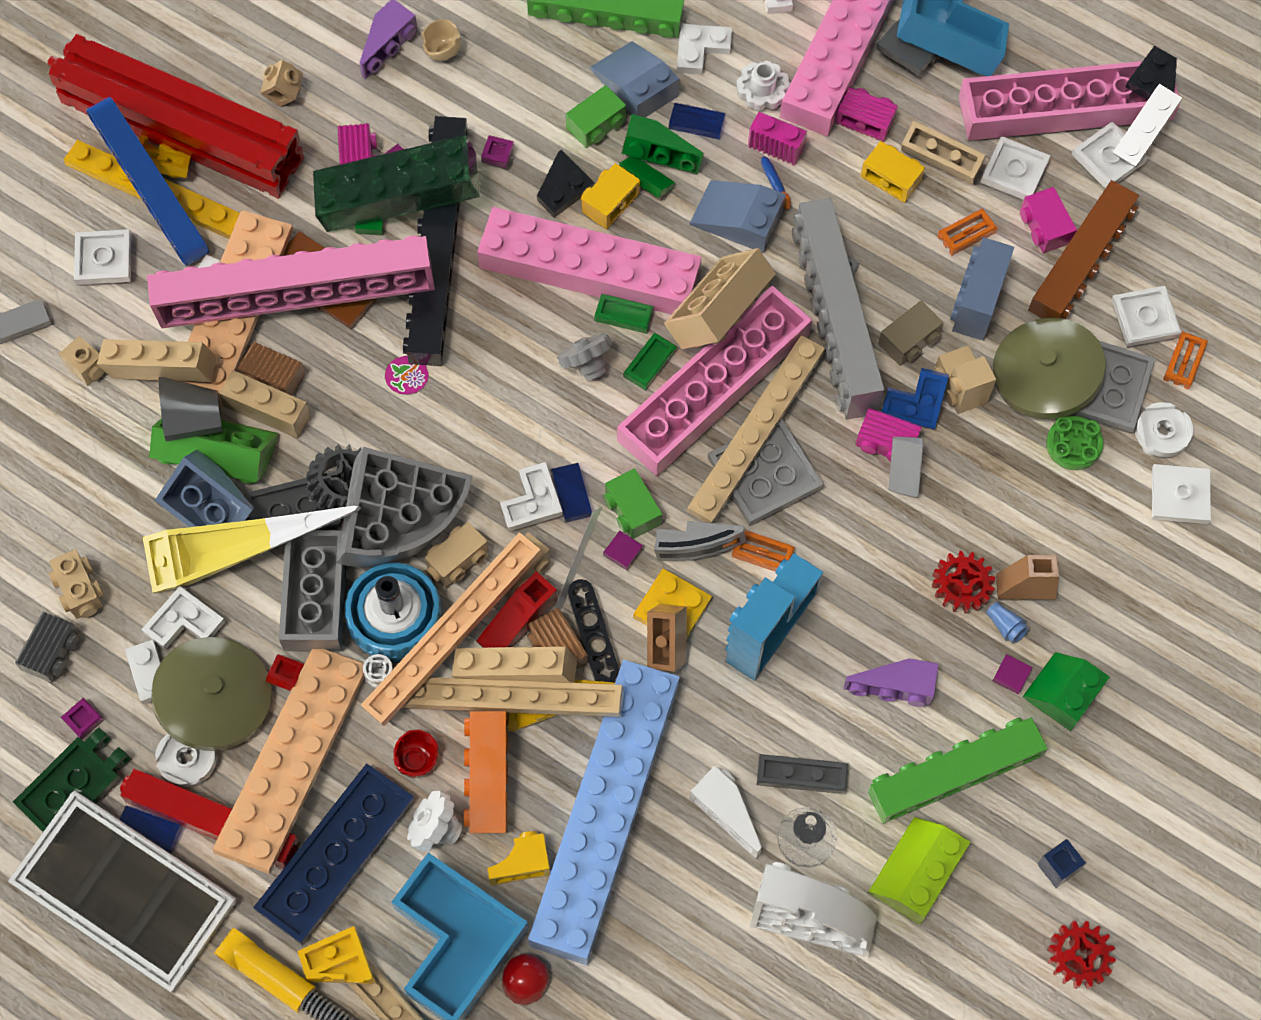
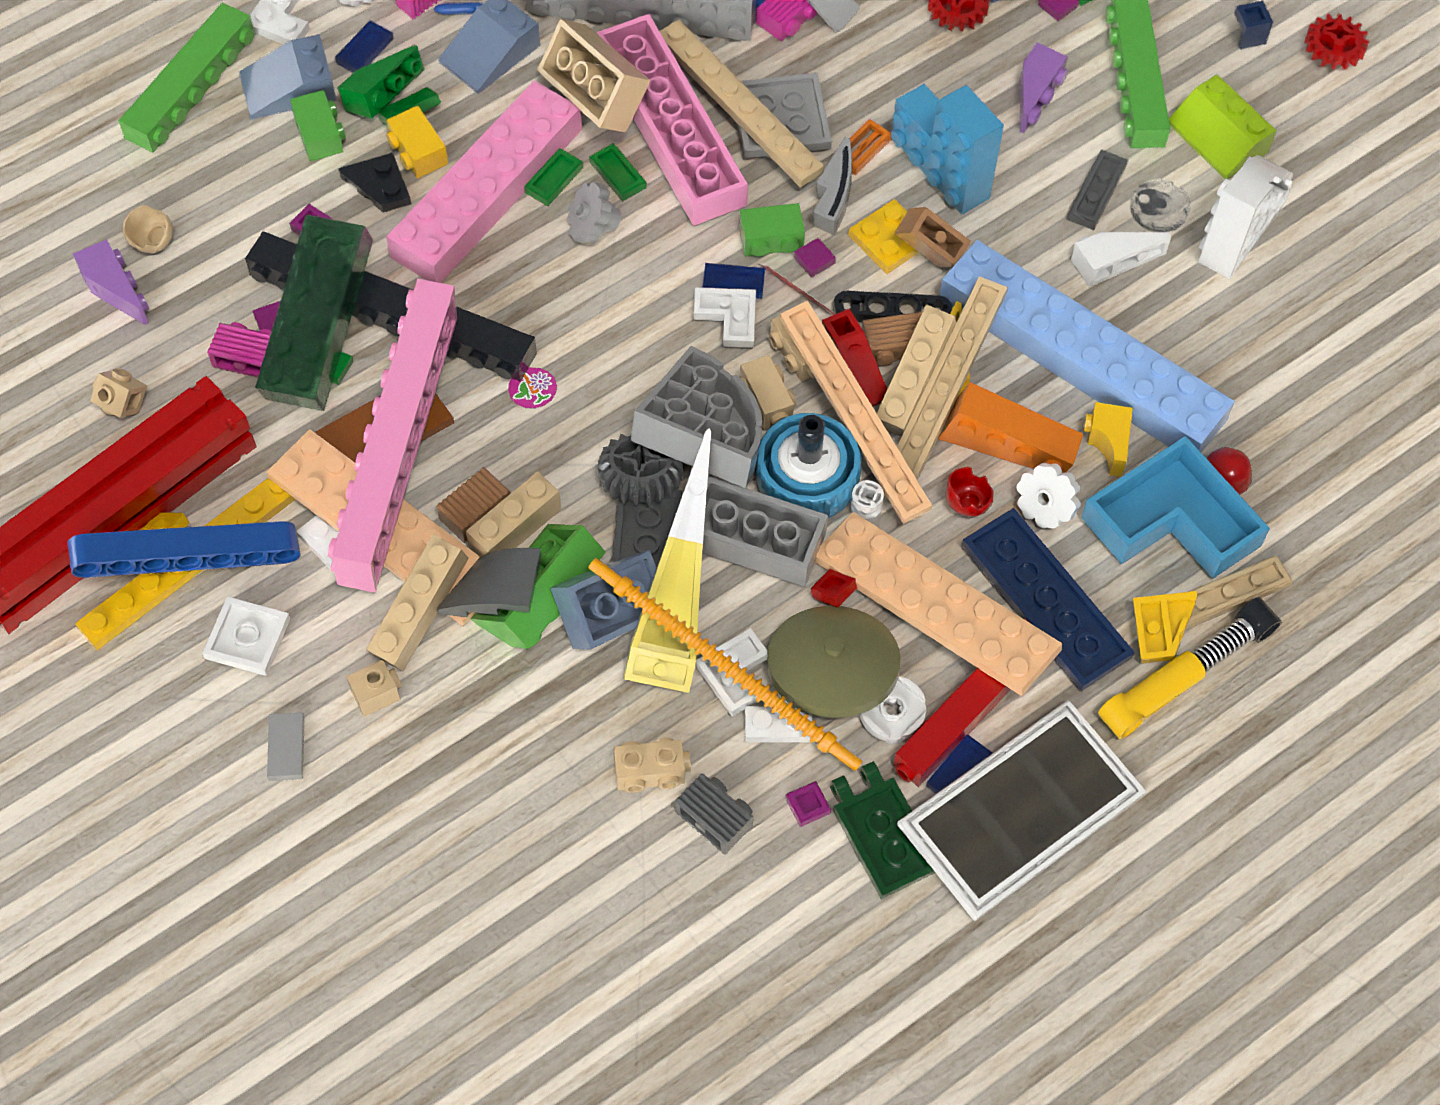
camera: 70 degrees left, 5 degrees down
(133, 711) = (826, 740): none -> light orange hose

